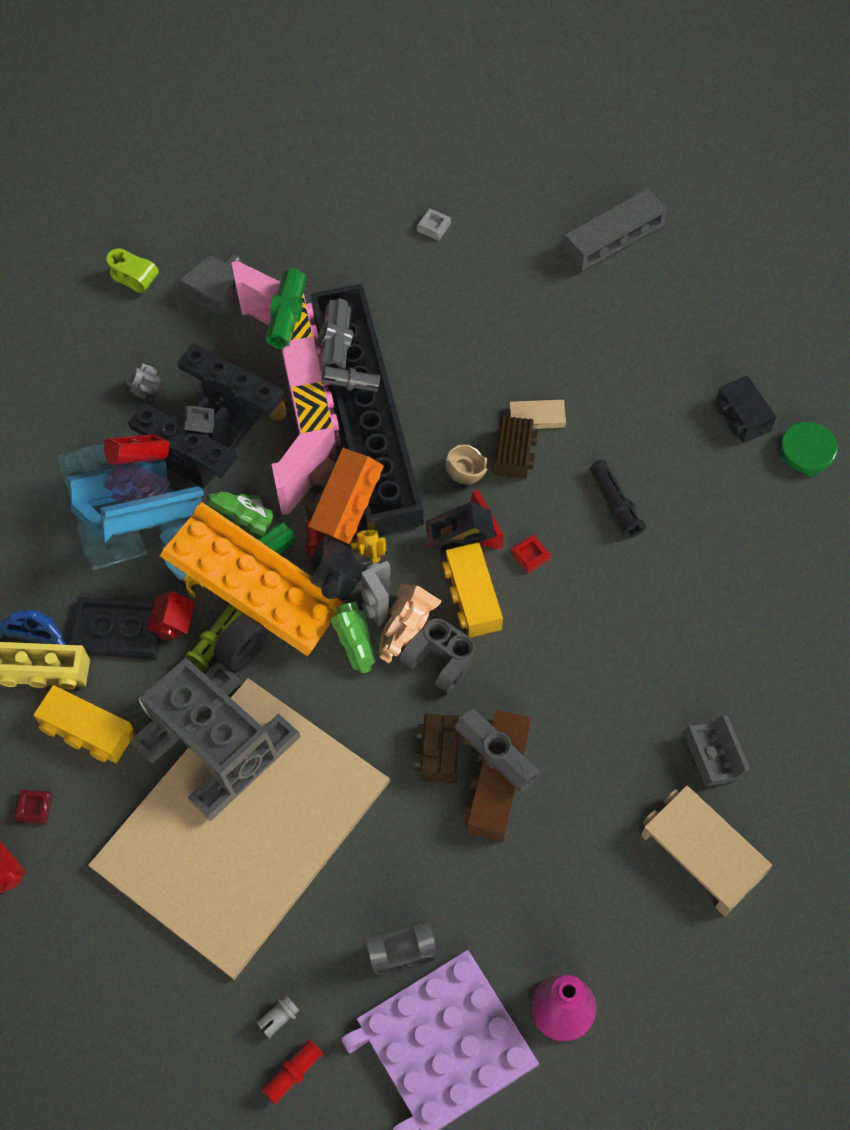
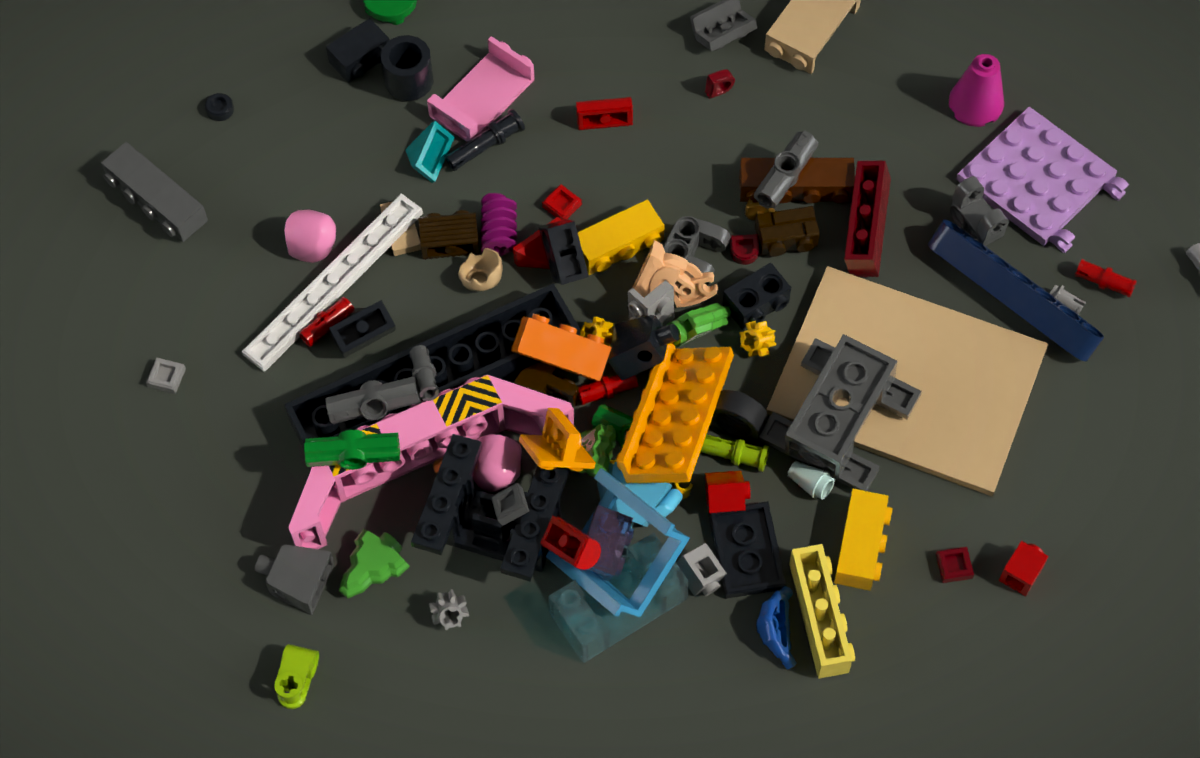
camera: 105 degrees left, 0 degrees up
(93, 577) = (701, 570): none -> light grey brick
(211, 334) = (372, 563): none -> bright green rock
(238, 465) = (557, 445): none -> light orange bracket
(257, 434) = (498, 463): none -> bright pink piece
(294, 973) = (1015, 290): none -> dark blue beam
(322, 686) = (757, 338): none -> yellow gear
(375, 698) = (752, 291): none -> black brick
(428, 359) = (362, 329): none -> black brick
(428, 828) = (867, 218): none -> dark red brick
(434, 703) = (744, 248): none -> dark red tile
(450, 340) = (325, 320): none -> red pin
(492, 354) = (332, 282): none -> white tile
(511, 488) = (498, 223): none -> magenta piece
(540, 336) = (309, 235): none -> bright pink piece
(615, 449) = (429, 150): none -> teal slope
(627, 611) = (604, 113): none -> red brick
(640, 730) = (719, 83): none -> dark red tile
(674, 507) = (483, 91): none -> bright pink panel
(705, 295) = (219, 107): none -> black tile
(708, 438) = (407, 68): none -> black piece

